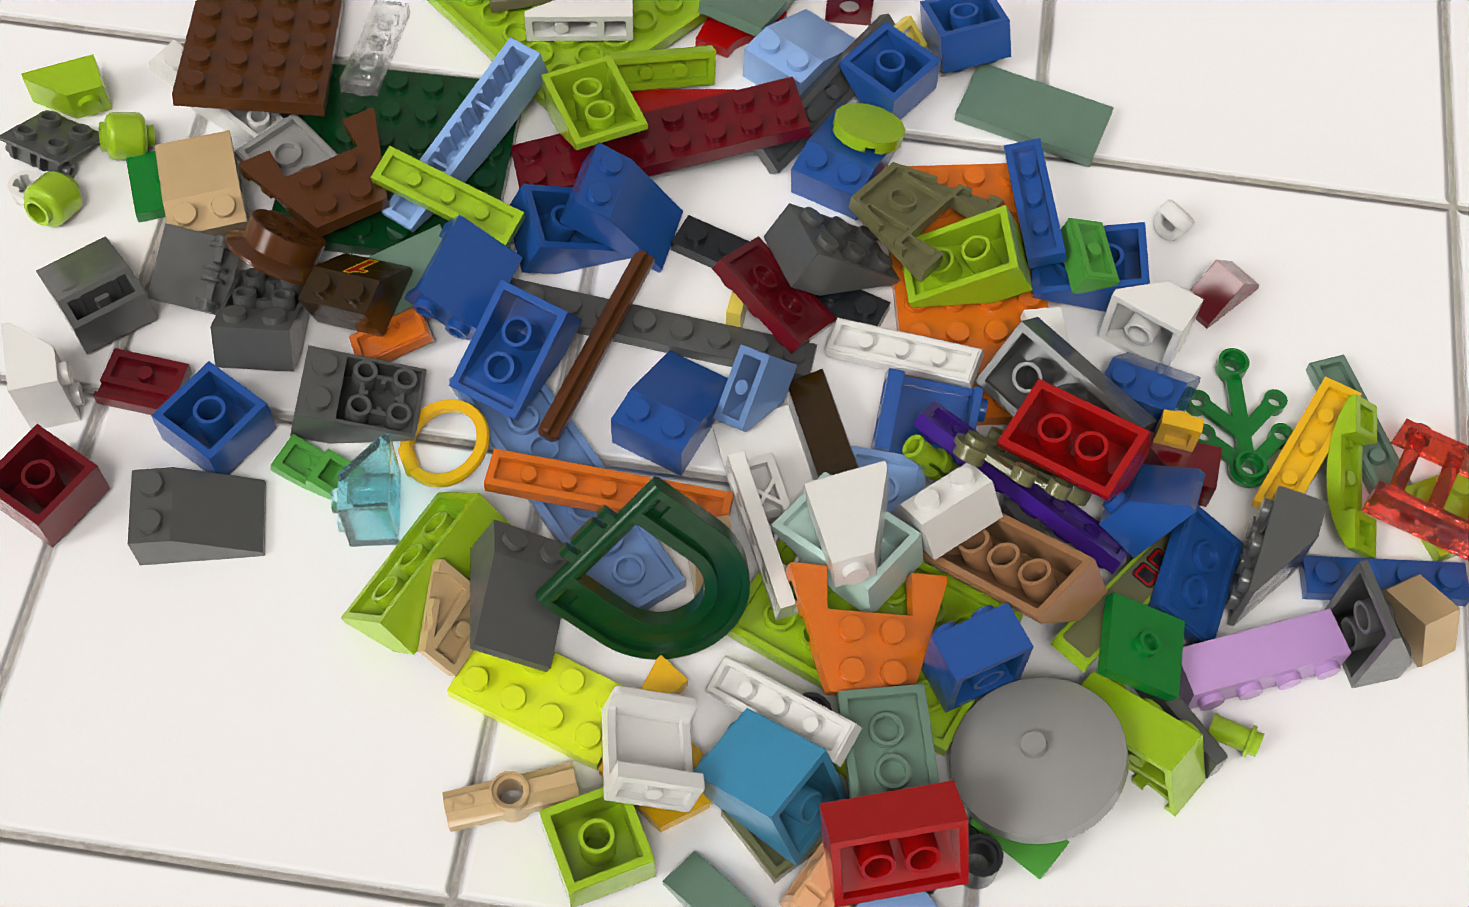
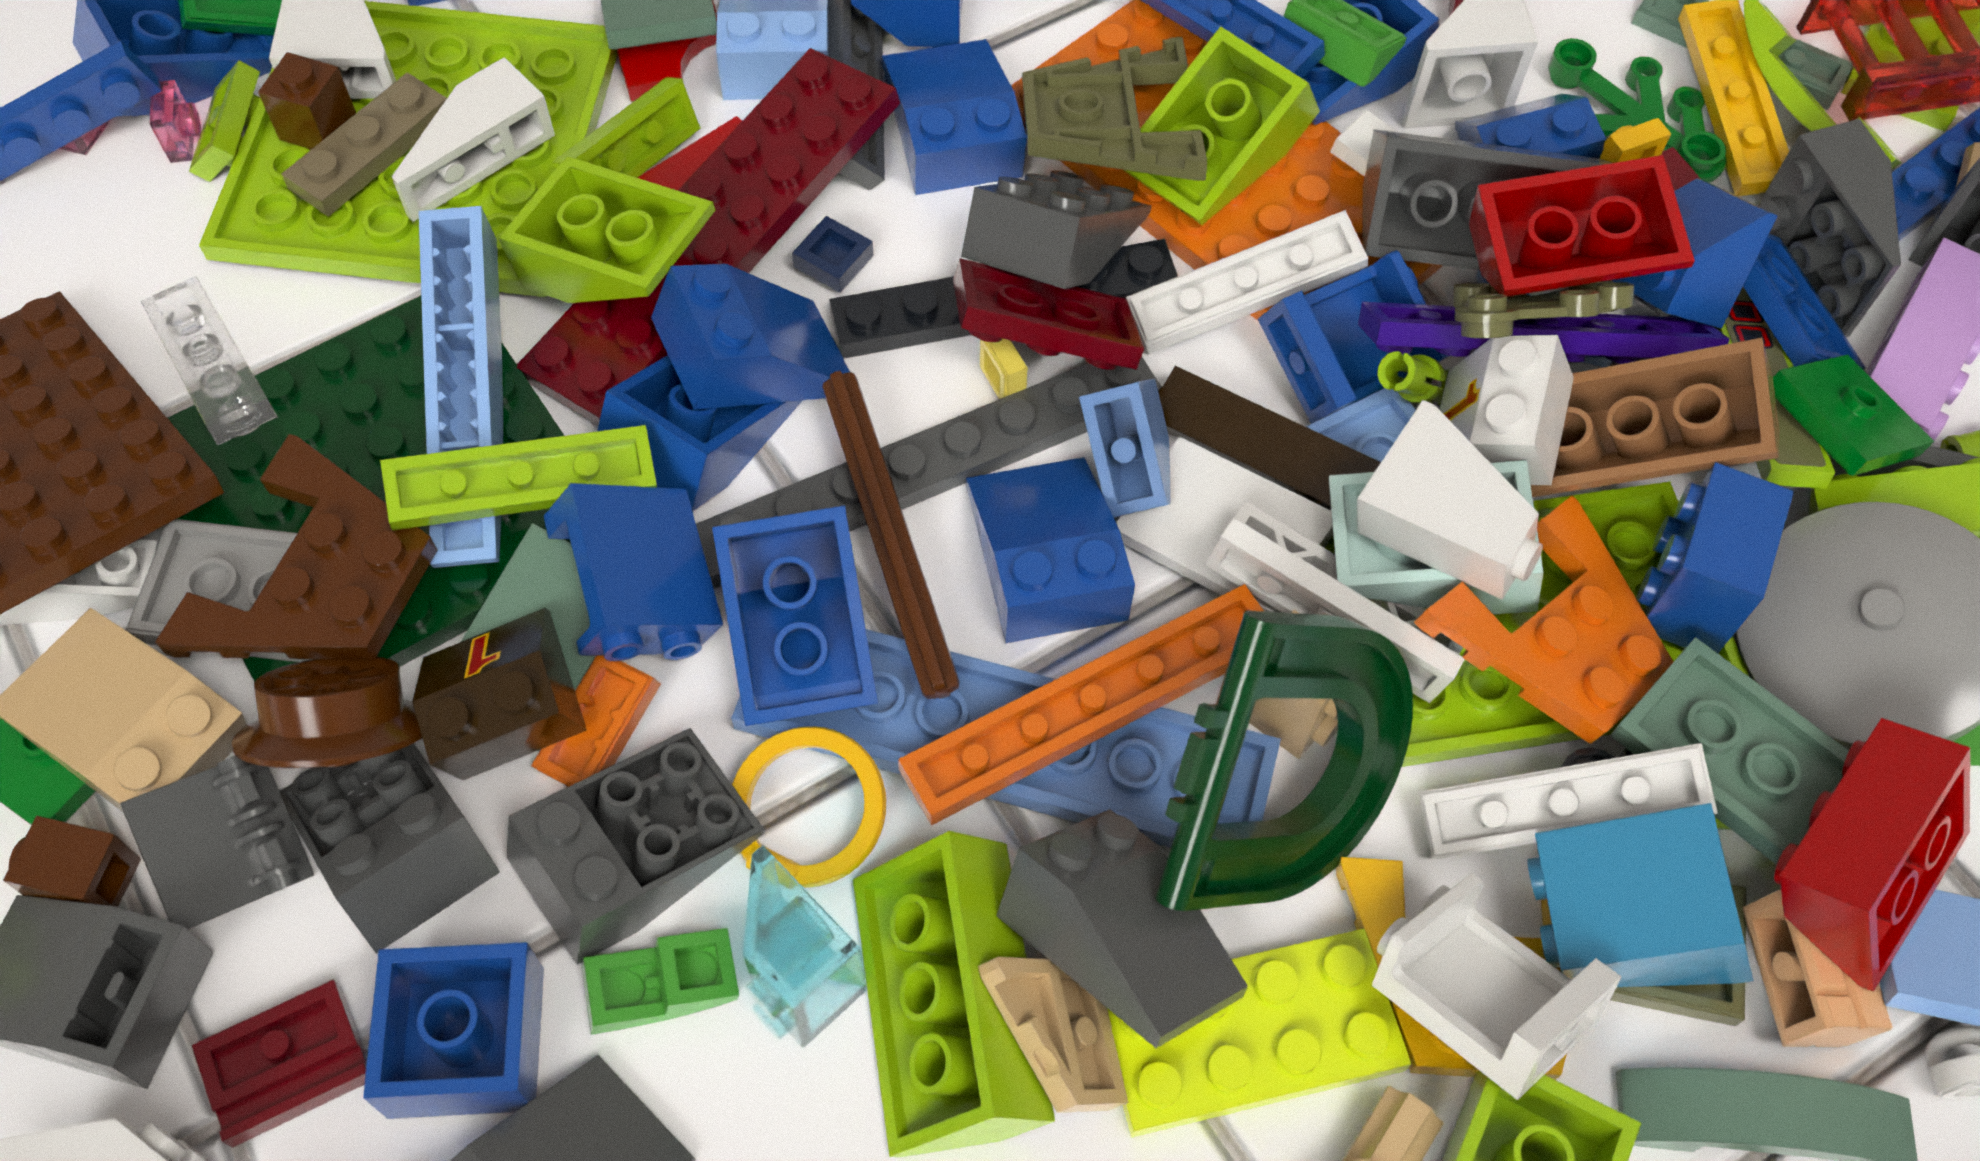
camera: 40 degrees left, 0 degrees up
(132, 239) = (71, 864): none -> reddish brown brick
(712, 193) = (833, 254): none -> dark blue plate
(868, 126) = (954, 53): lime tile -> none

